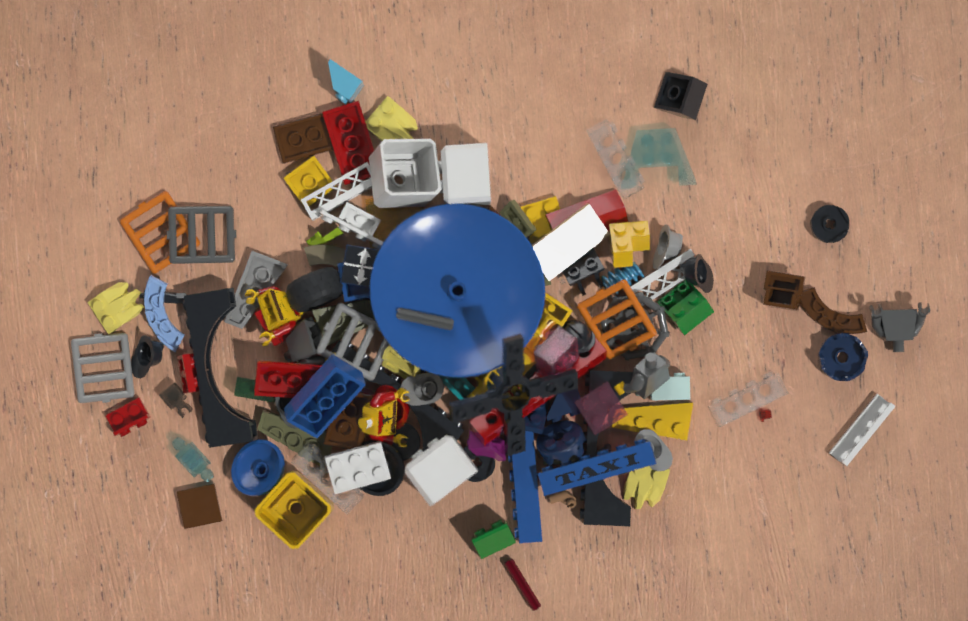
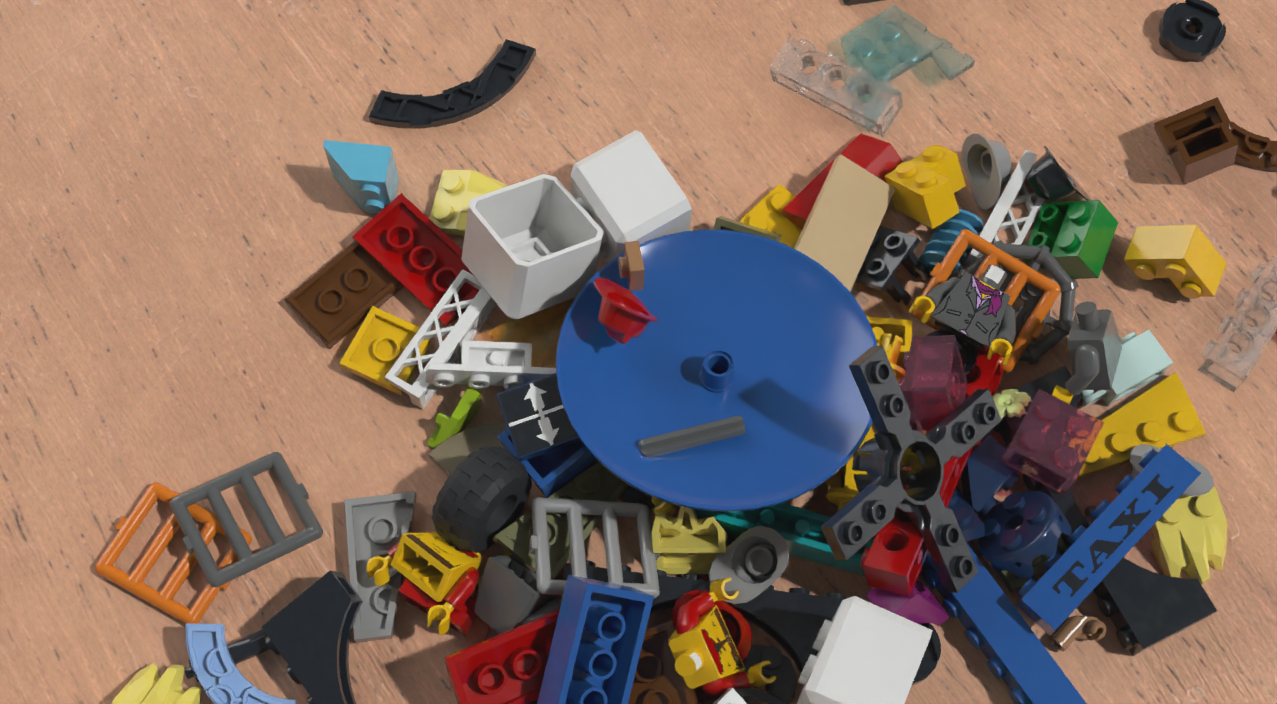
camera: 30 degrees left, 20 degrees down
(418, 58) = (459, 101): none -> black tile
(425, 240) = (621, 311): none -> red piece
(442, 217) = (632, 266): none -> medium nougat plate
(593, 377) = (1011, 402): none -> yellowish green plant
(602, 325) = (973, 311): none -> dark grey torso
(728, 348) = (1177, 254): none -> yellow brick

